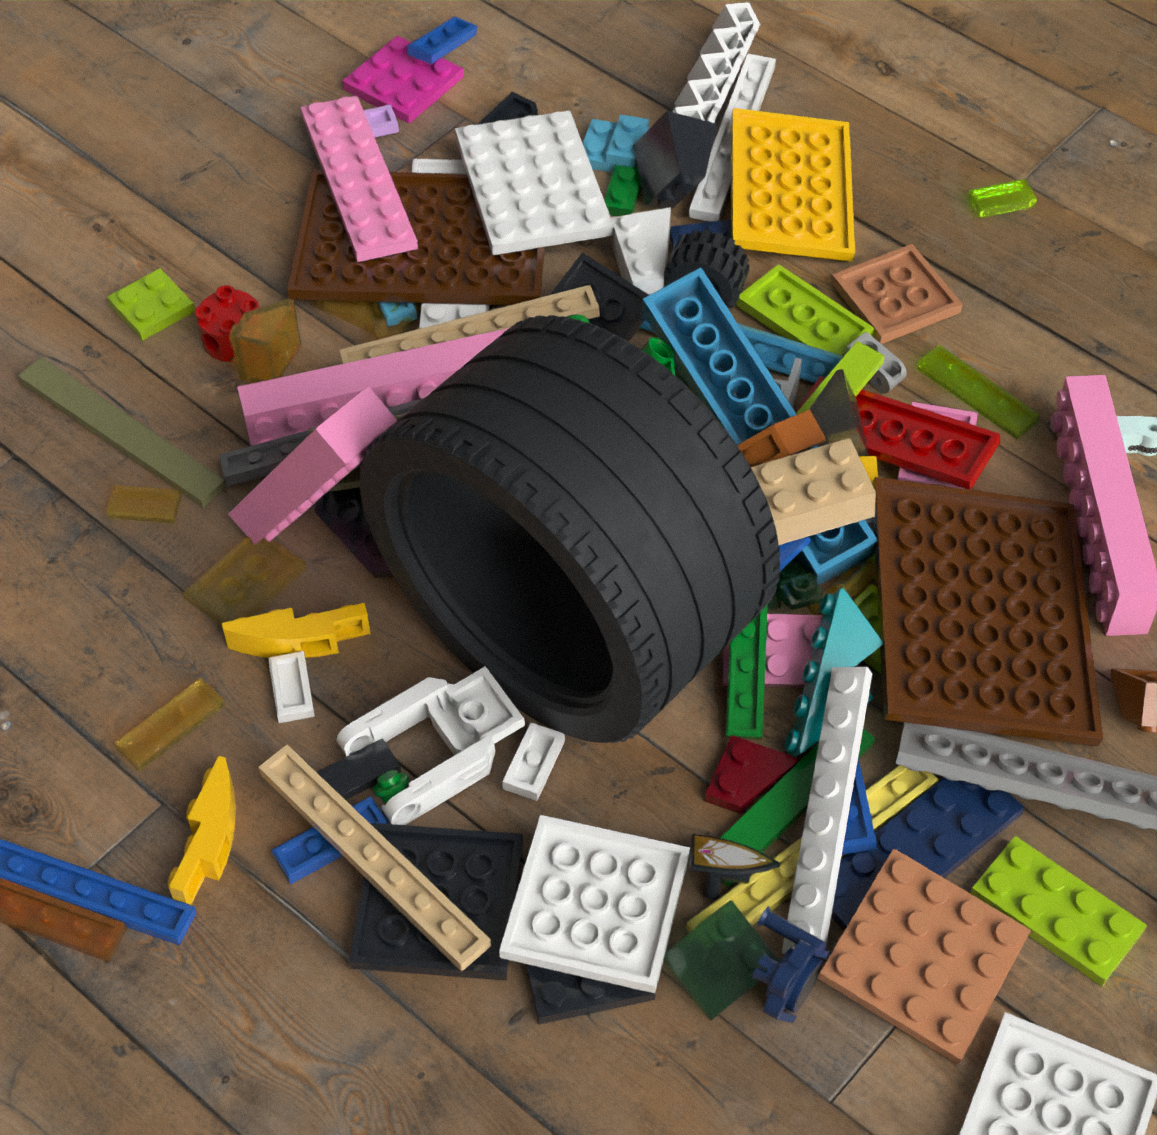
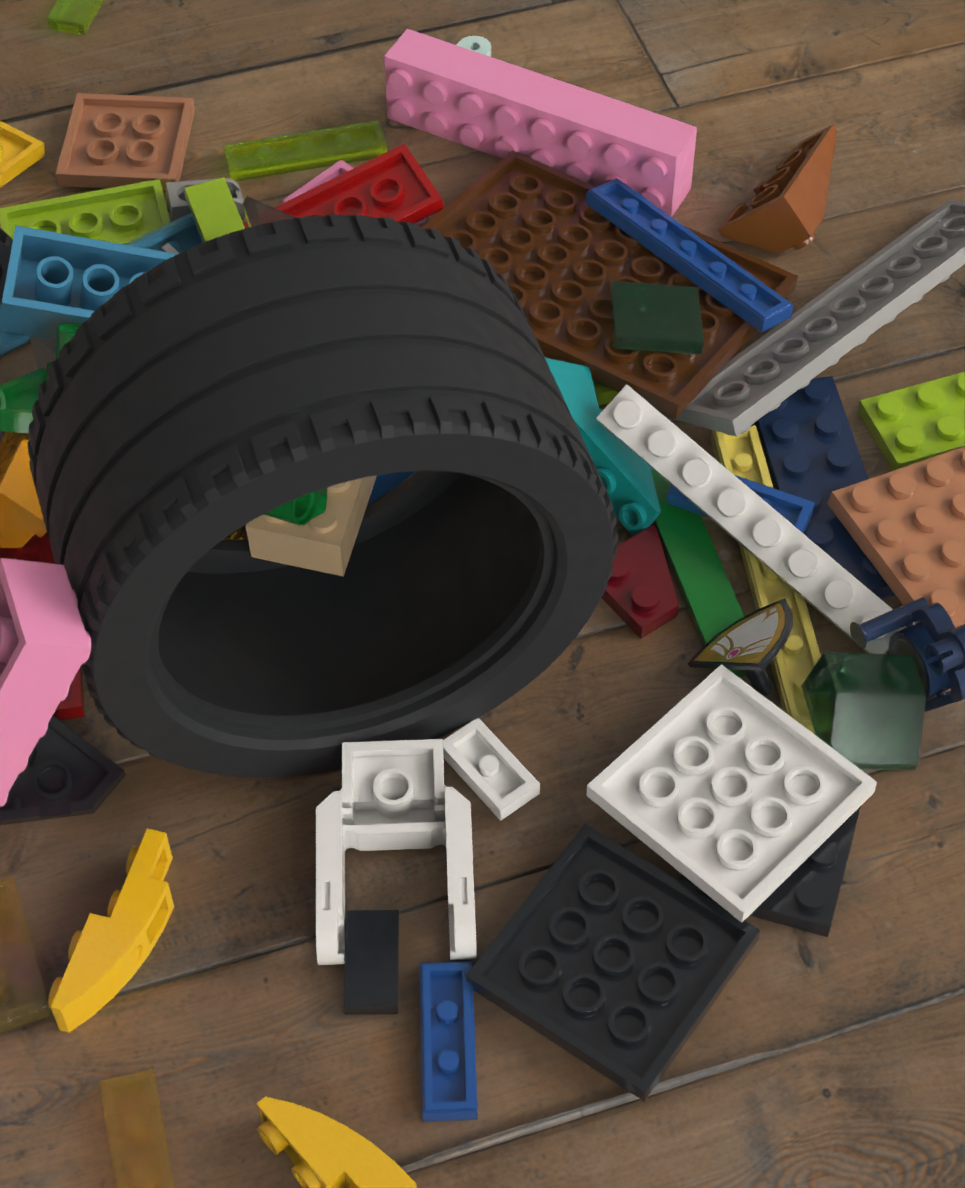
camera: 60 degrees left, 0 degrees up
(291, 687) = (189, 981): white tile -> none
(375, 858) = (519, 991): tan plate -> none
(390, 784) = (424, 932): green plate -> none
(963, 661) = (656, 318): none -> clear green tile
(1054, 658) = (690, 255): none -> blue tile

